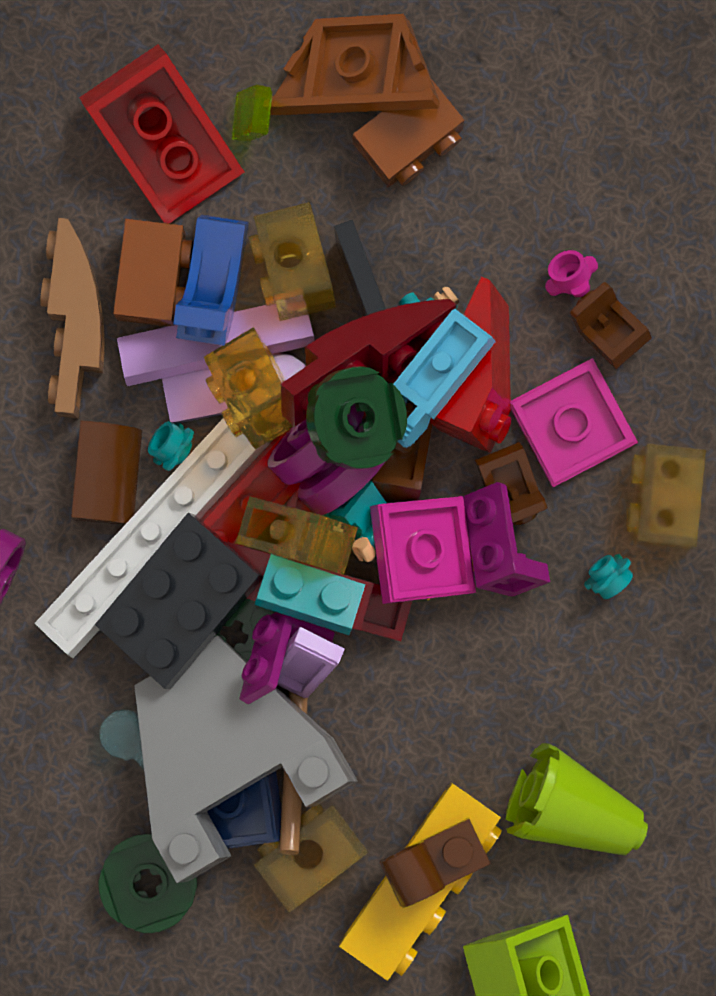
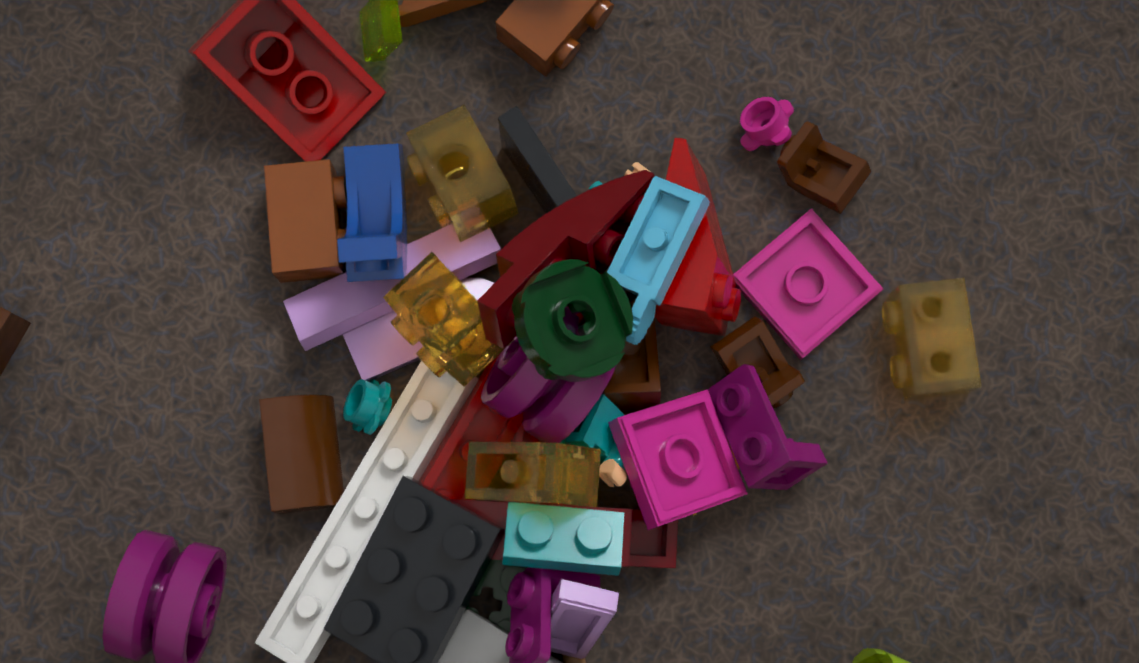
camera: 15 degrees left, 5 degrees down
(73, 298) = (228, 270): medium nougat slope -> none
(609, 576) = (890, 442): teal plate -> none

